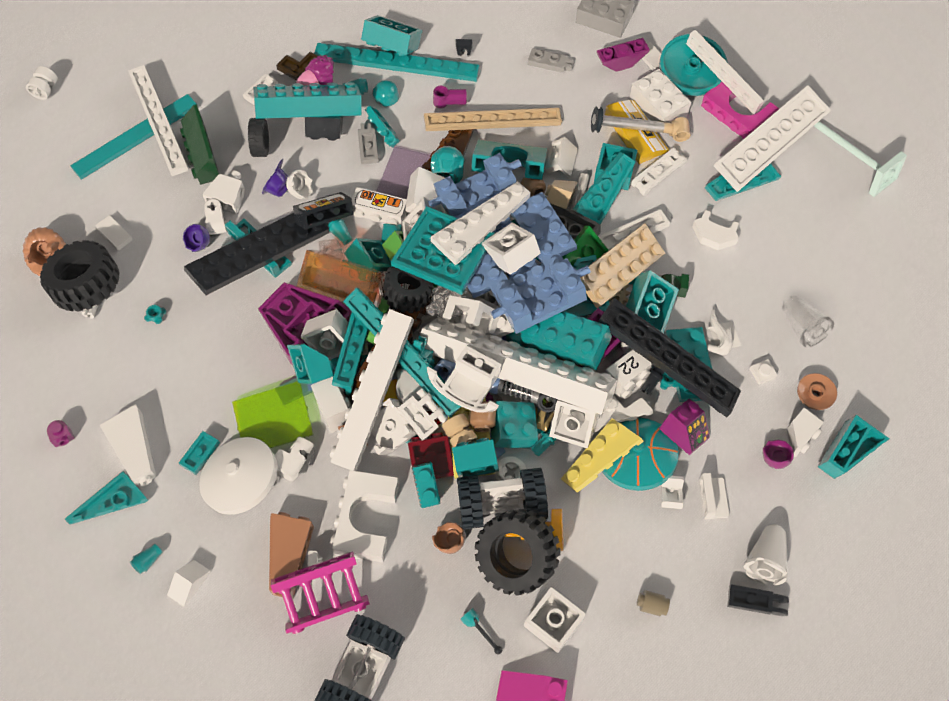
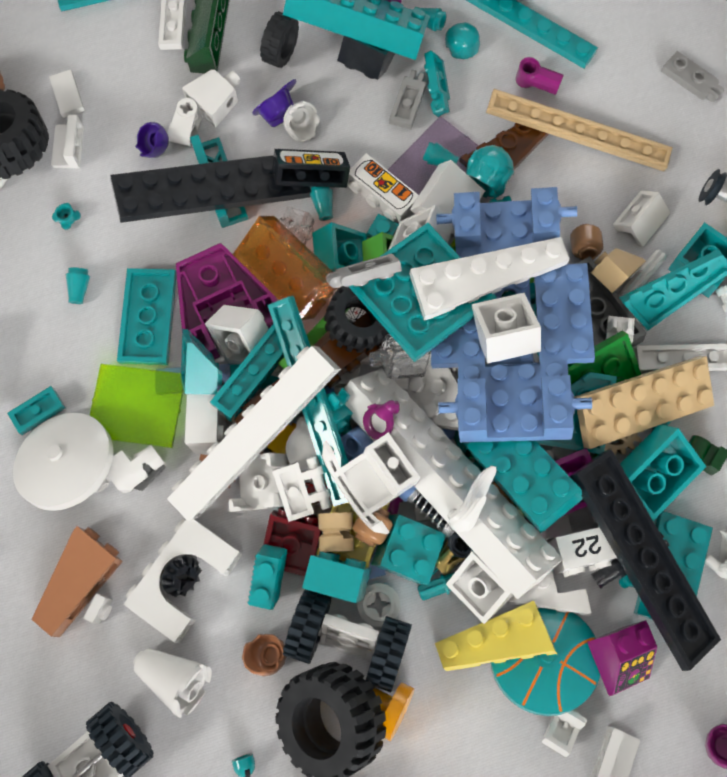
camera: 30 degrees right, 10 degrees up
(131, 266) = (68, 143): none -> white panel
(187, 355) = (77, 282): none -> teal cone
(251, 356) = (147, 316): none -> teal plate
(304, 578) = (91, 627): dark pink fence -> none
(360, 520) = (180, 566): none -> black gear
(391, 582) = (173, 679): none -> white cone
(399, 252) = (362, 272): none -> light grey hinge
(404, 170) = (437, 154): none -> teal cone
(458, 334) = (384, 412): none -> magenta piece
(464, 44) = (590, 12): black tile -> none
(472, 312) = (421, 387): white panel -> none
(531, 157) = (600, 200): teal arch -> none
(543, 373) = (467, 514): none -> white piece
(578, 225) = (617, 324): none -> white tile

